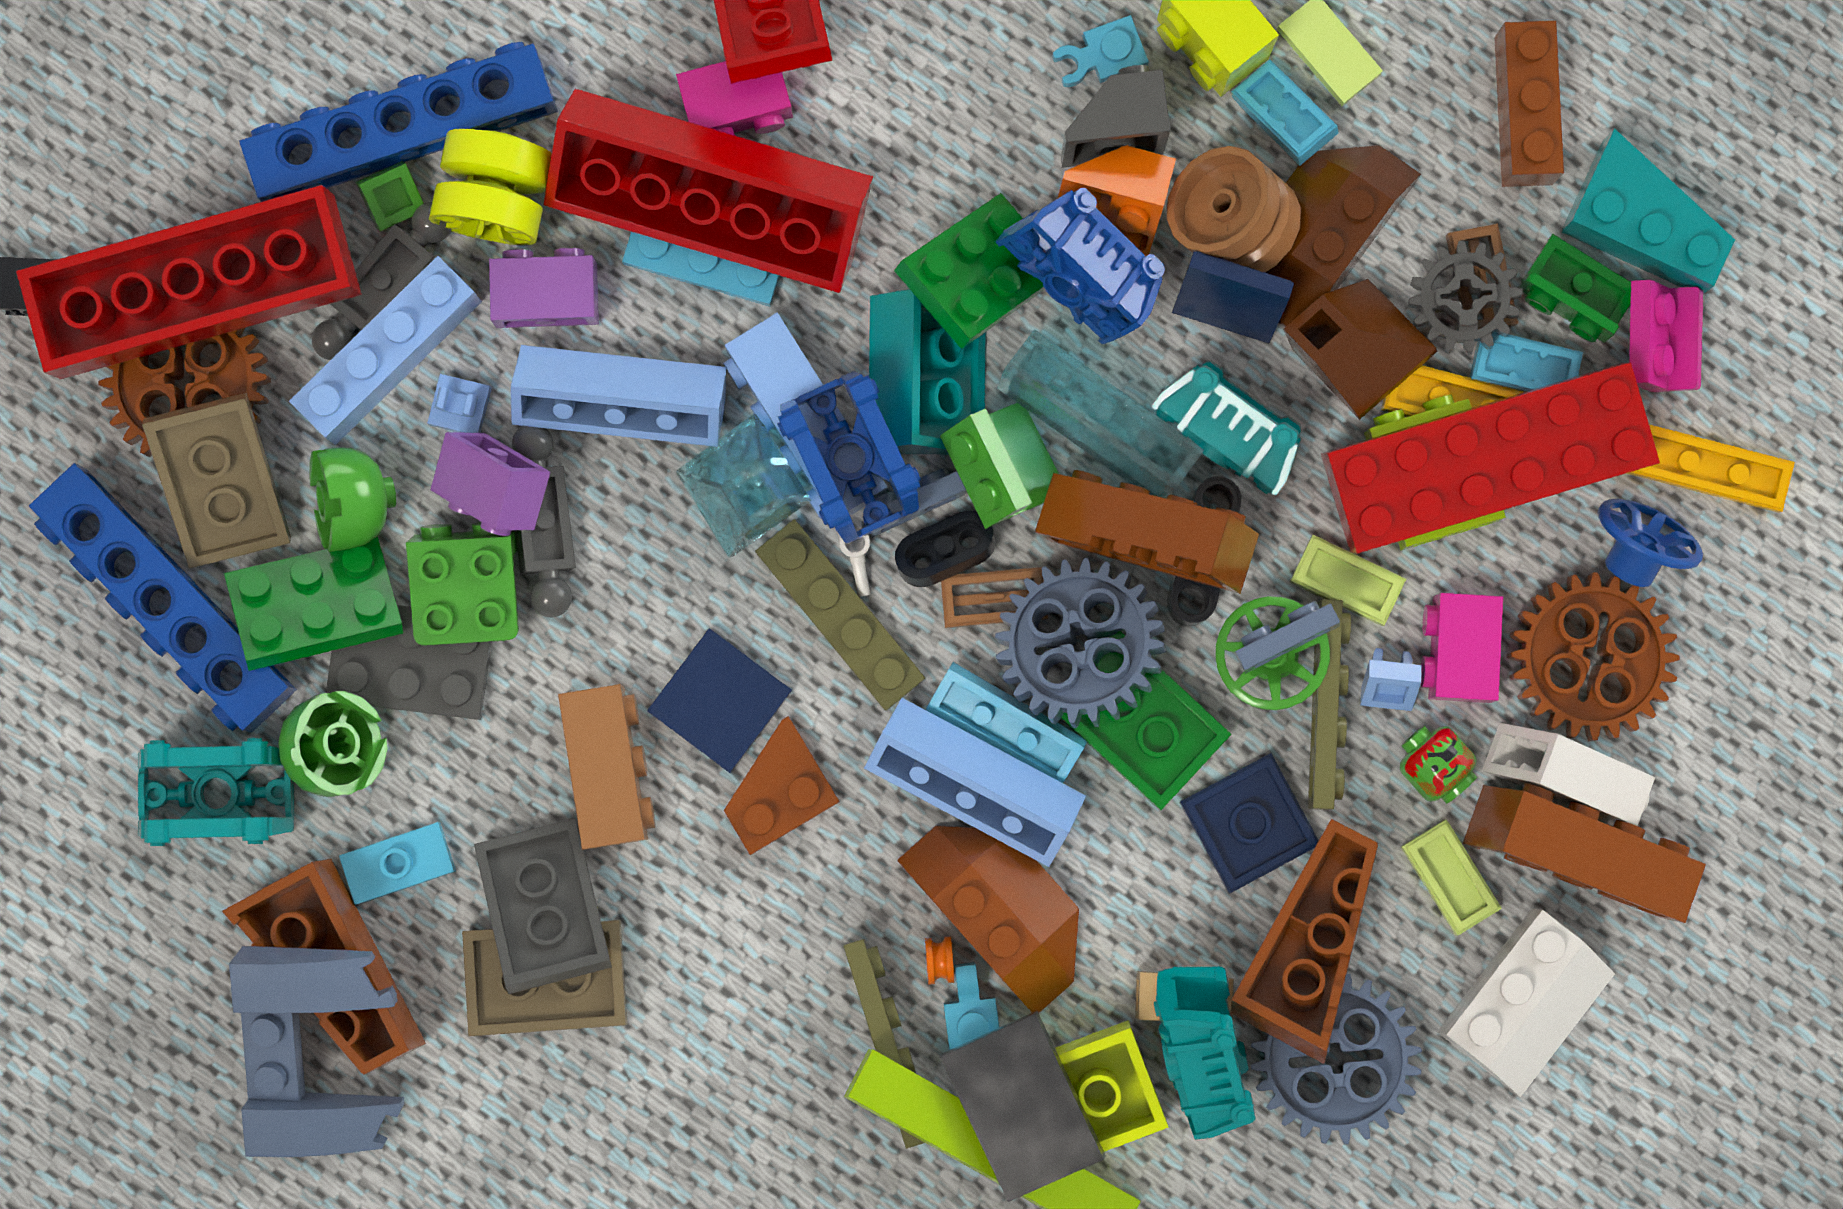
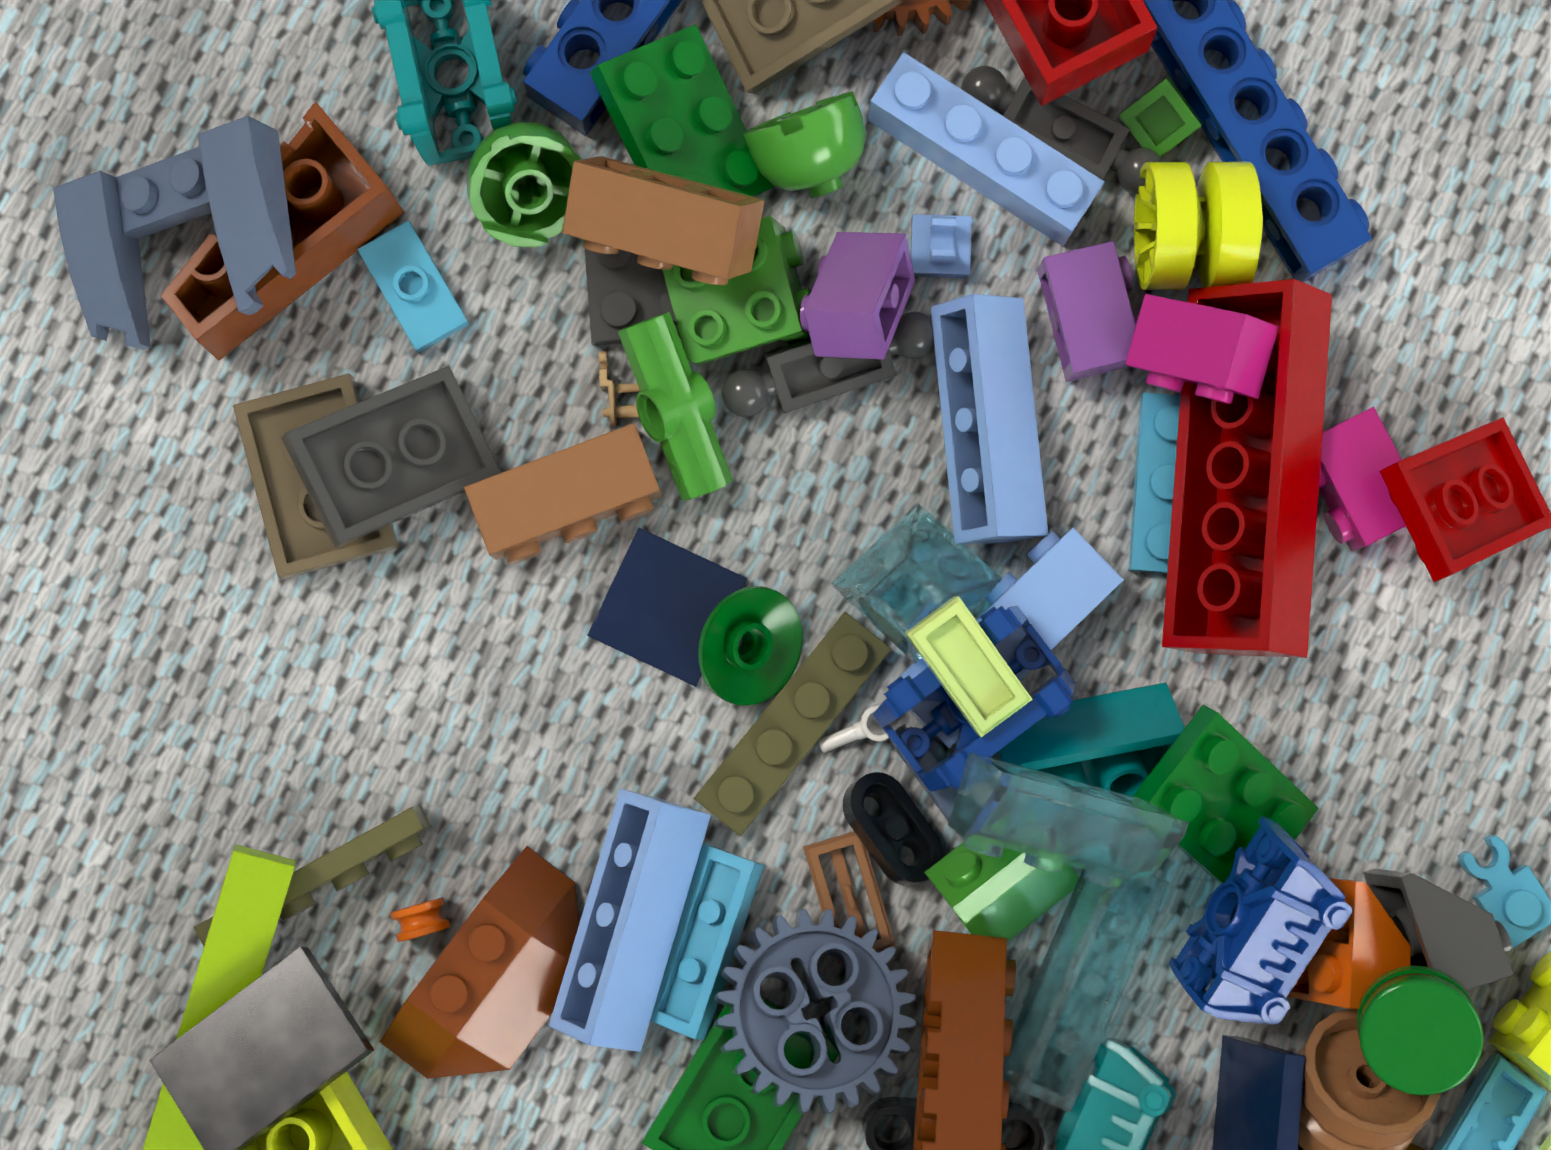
camera: 75 degrees right, 0 degrees up
(391, 632) = (662, 219): none -> medium nougat brick
(545, 698) = (615, 411): none -> tan piece
(550, 657) = (675, 406): none -> bright green piece
(596, 207) = (1201, 346): none -> dark pink brick
(767, 635) = (768, 647): none -> green dish
(779, 791) = (578, 696): dark orange wing -> none
(821, 454) = (968, 666): none -> yellowish green tile
(964, 406) = (1062, 822): none -> clear light blue slope
(971, 1014) = (362, 969): medium azure plate -> none
(1190, 155) = (1419, 1030): none -> green head

